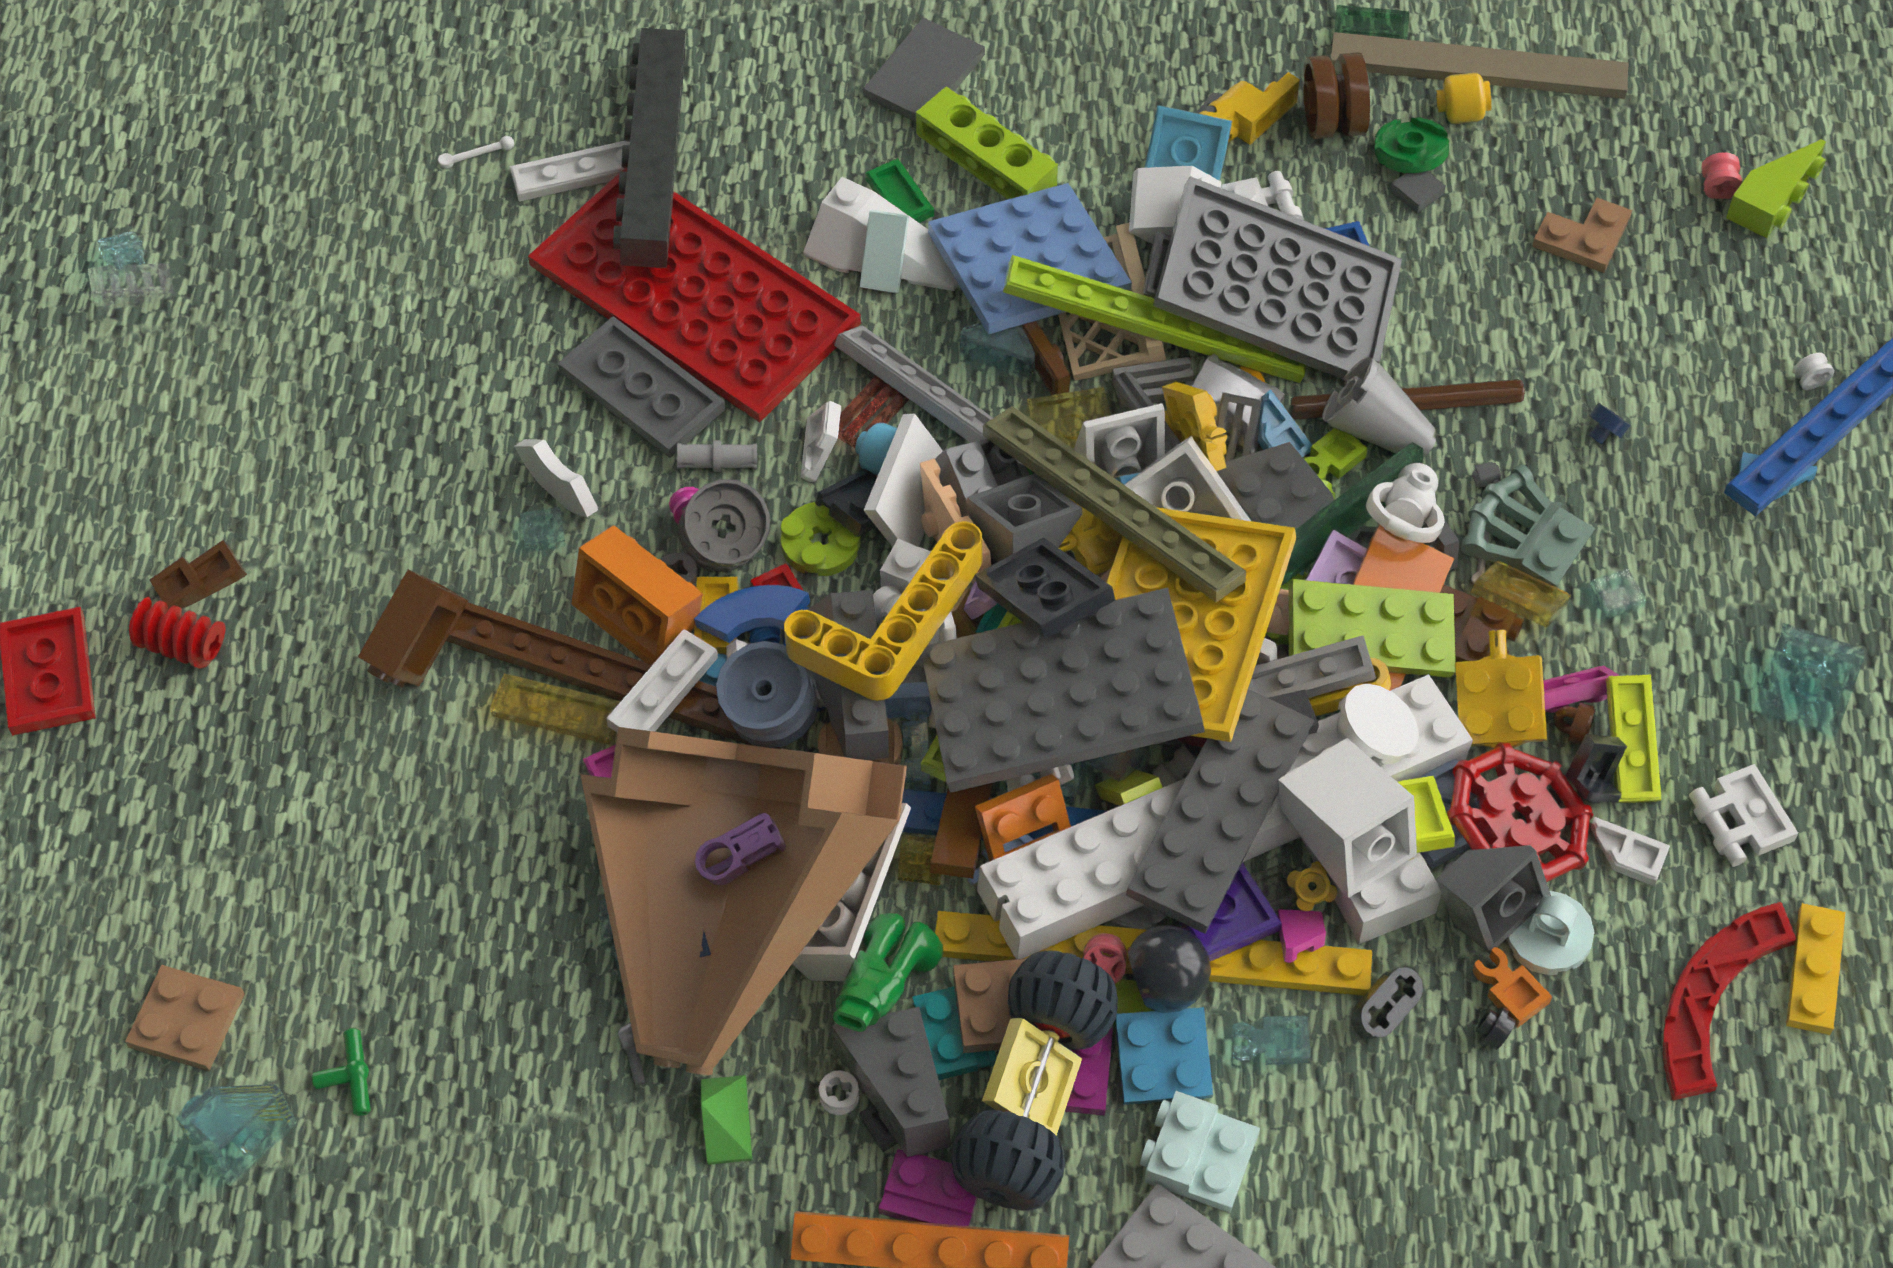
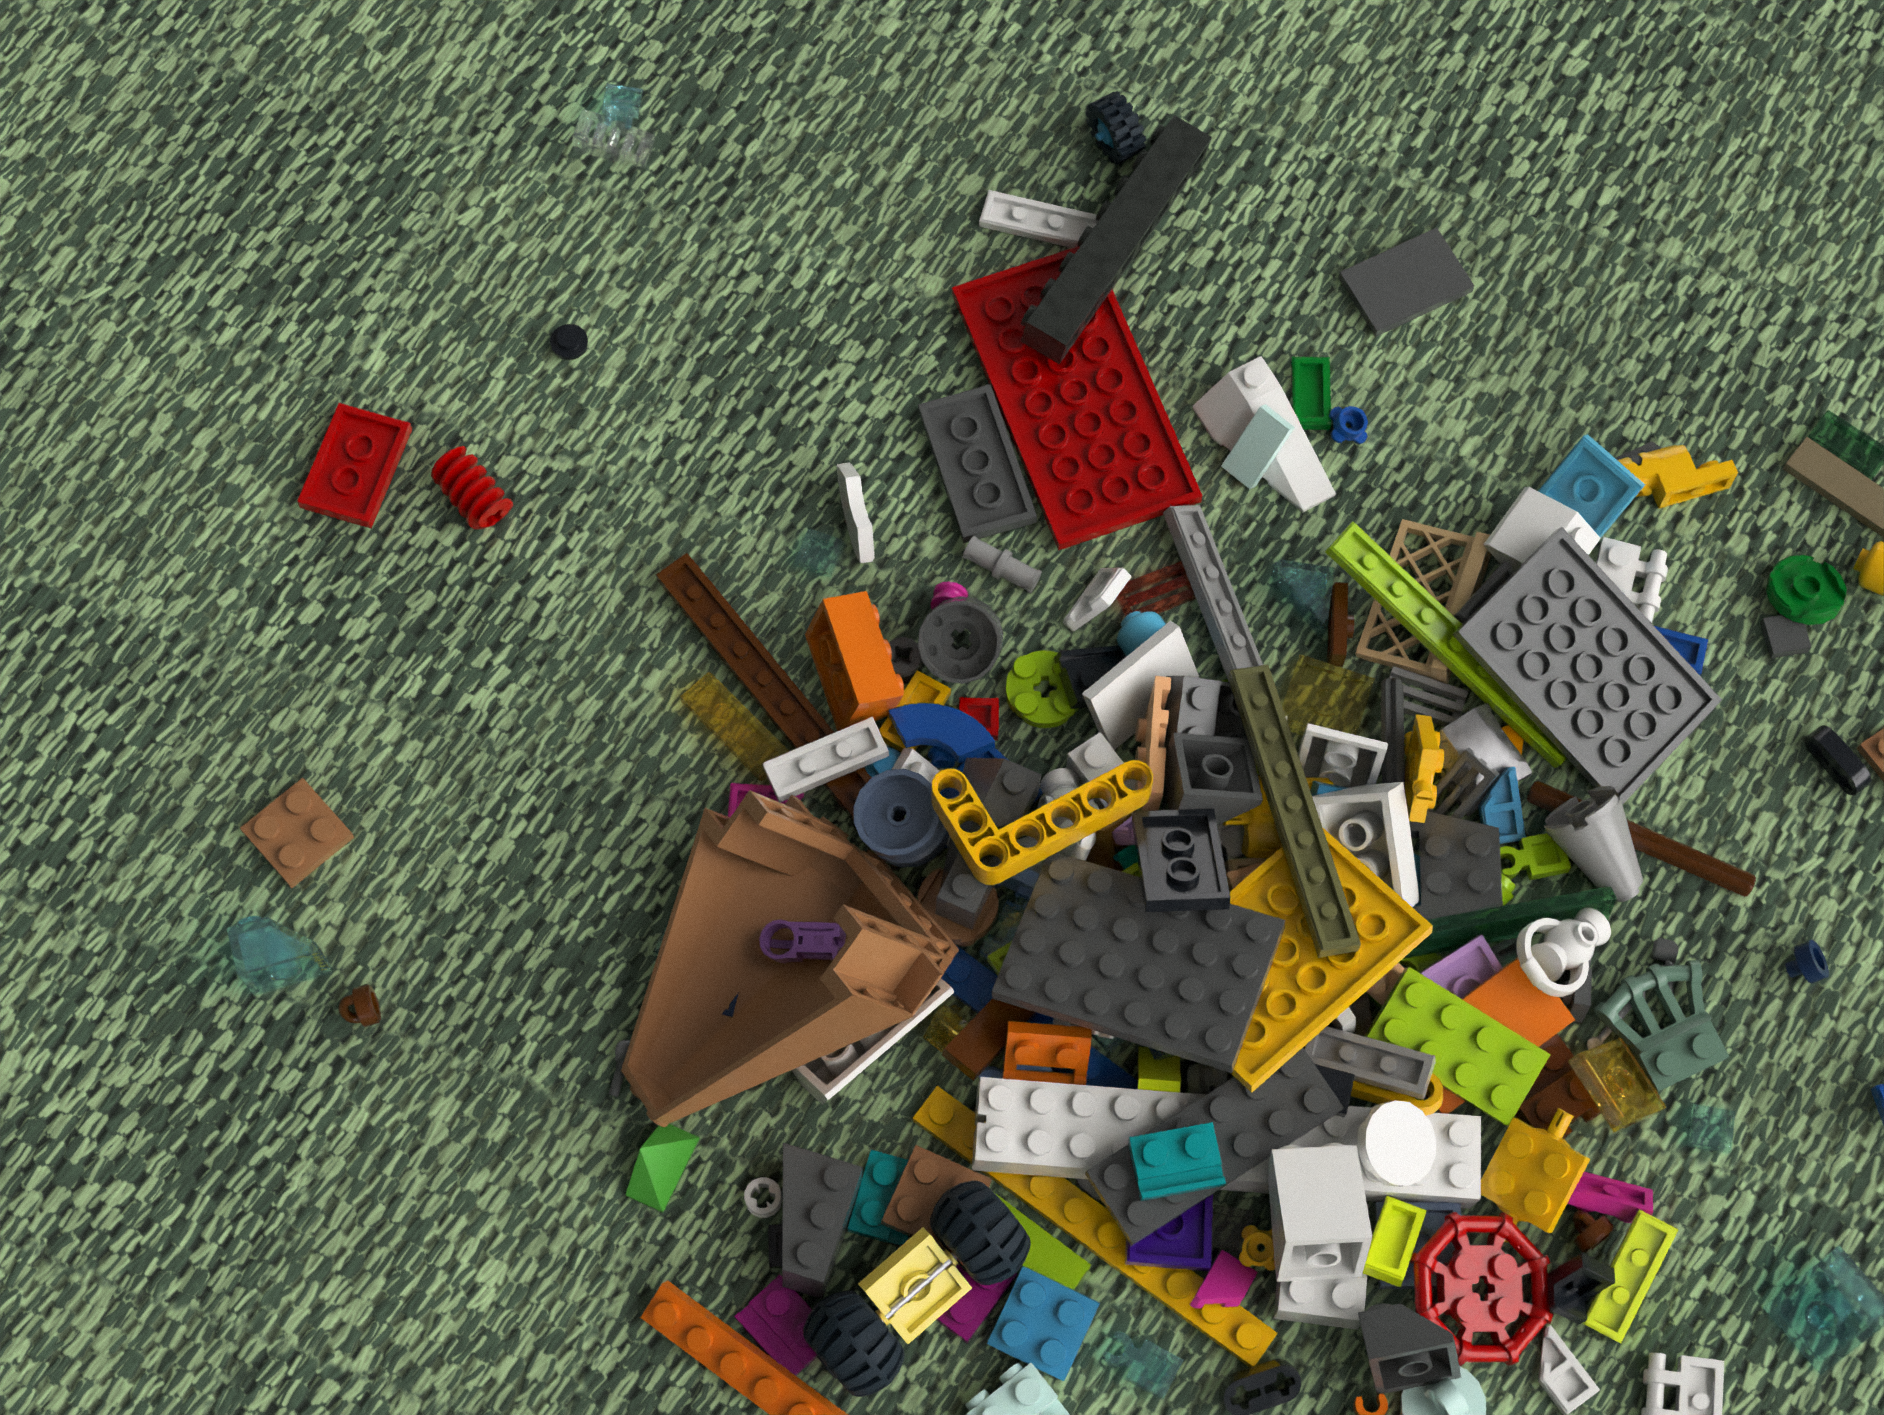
camera: 30 degrees right, 10 degrees up
(190, 582) = (509, 445): reddish brown slope -> none
(193, 469) = (569, 341): none -> black plate
(351, 1129) = (365, 1004): none -> reddish brown tile
(354, 1073) = (398, 956): green piece -> none
(412, 630) = (651, 595): reddish brown window -> none
(446, 160) = (940, 155): white hinge -> none
(595, 62) = (1115, 127): none -> black wheel
(872, 985) = (833, 1127): green piece -> none
(949, 200) = (1352, 416): none -> blue plate
(984, 146) = (1422, 443): lime brick -> none
(1040, 227) = (1396, 499): medium blue plate -> none
(1109, 944) = (1035, 1219): coral wheel -> none
(1169, 967) = (1087, 1254): black helmet -> none
(1202, 833) = (1176, 1161): none -> teal plate
(1336, 95) = (1762, 508): reddish brown wheel -> none
(1525, 258) = (1838, 760): none -> black beam

